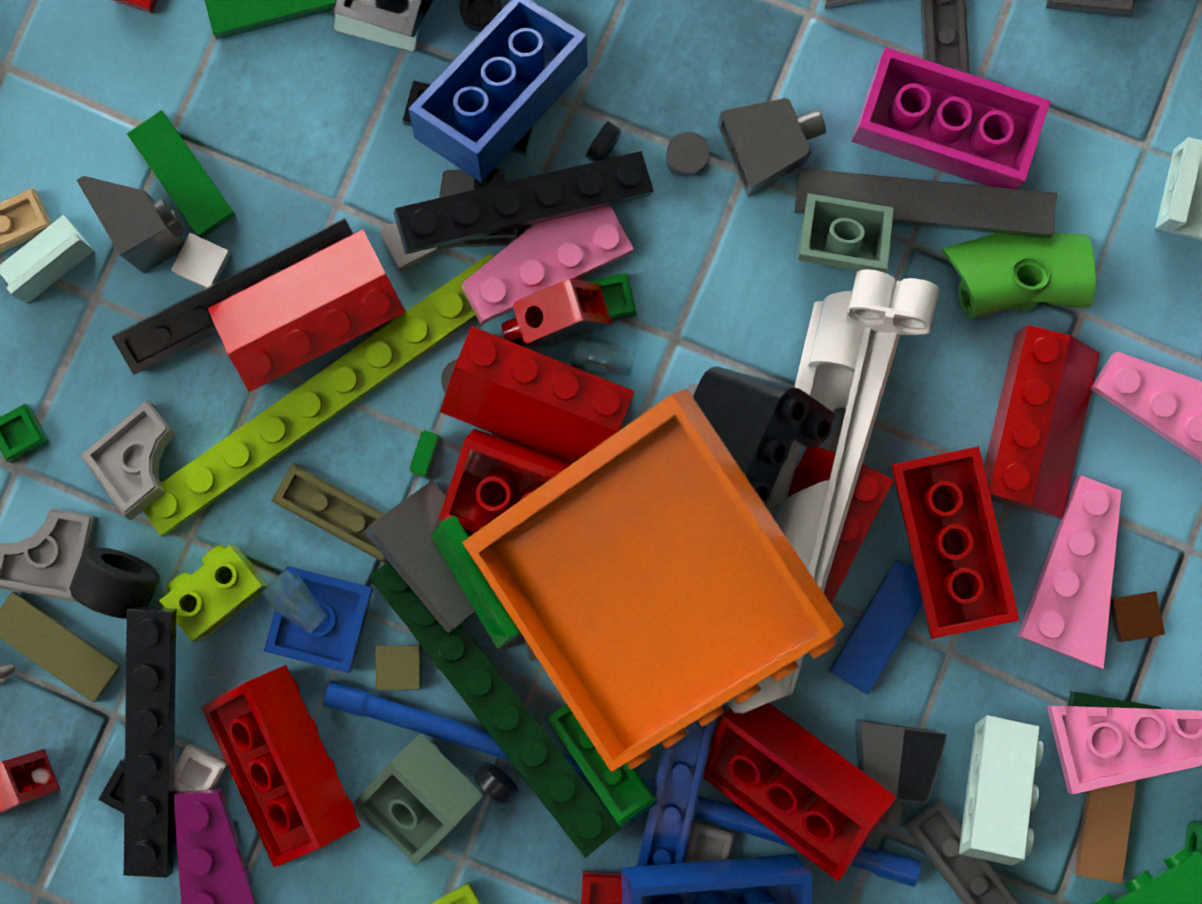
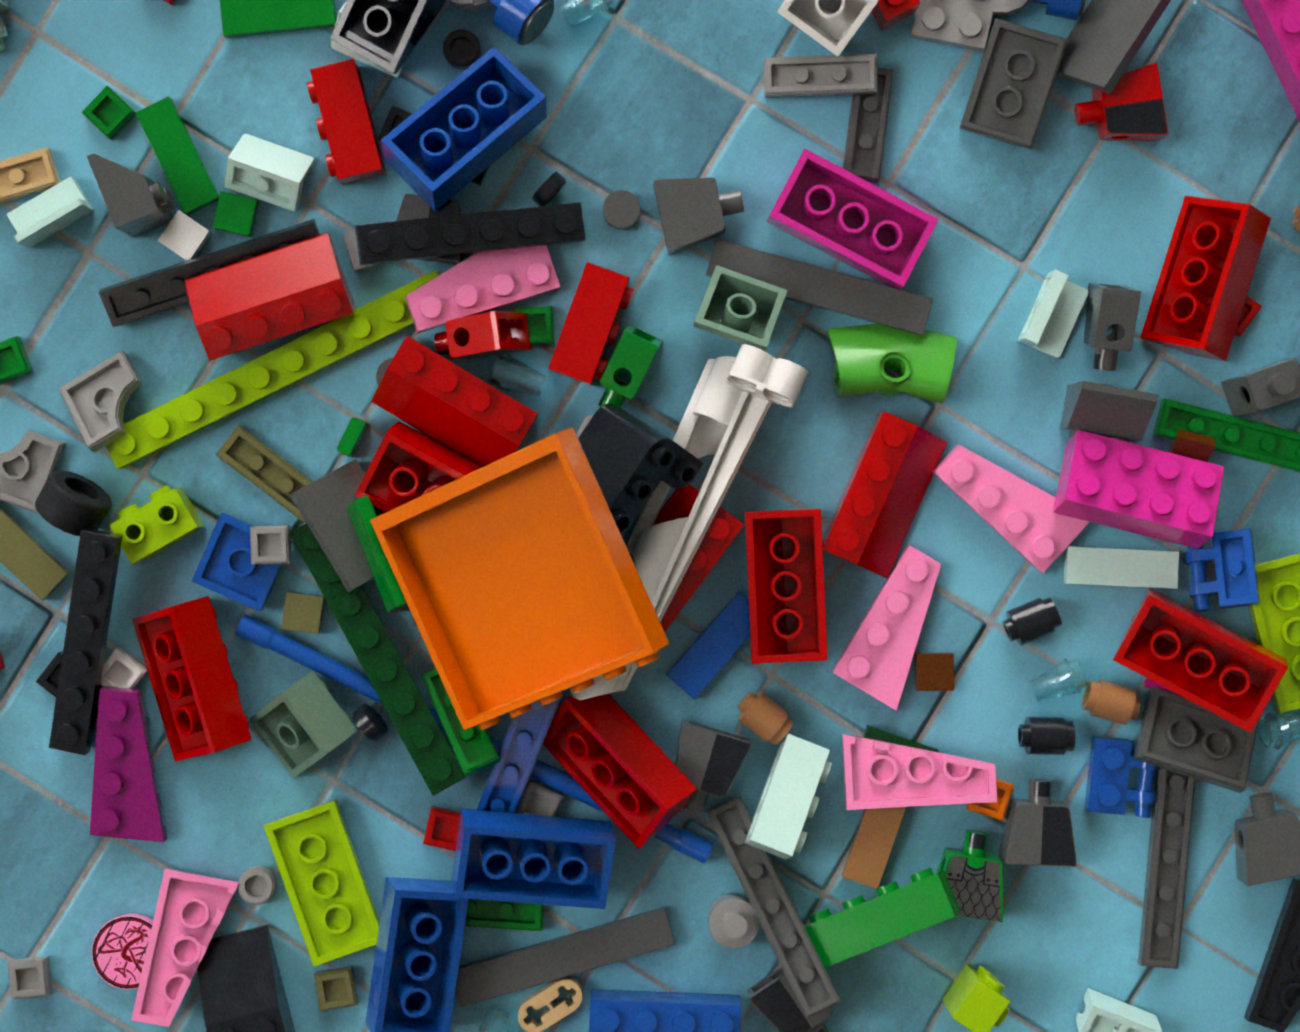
camera: 10 degrees right, 5 degrees up
(97, 139) = (109, 112): none -> green tile
(255, 228) = (235, 214): none -> green tile
(284, 175) = (267, 171): none -> light aqua panel
(294, 601) = (222, 544): clear light blue cone -> none
(349, 593) = (270, 544): none -> light grey tile
(364, 106) = (346, 122): none -> red brick
(676, 285) = (591, 324): none -> red brick
(734, 305) = (635, 353): none -> green torso
(953, 701) = (764, 717): none -> medium nougat brick

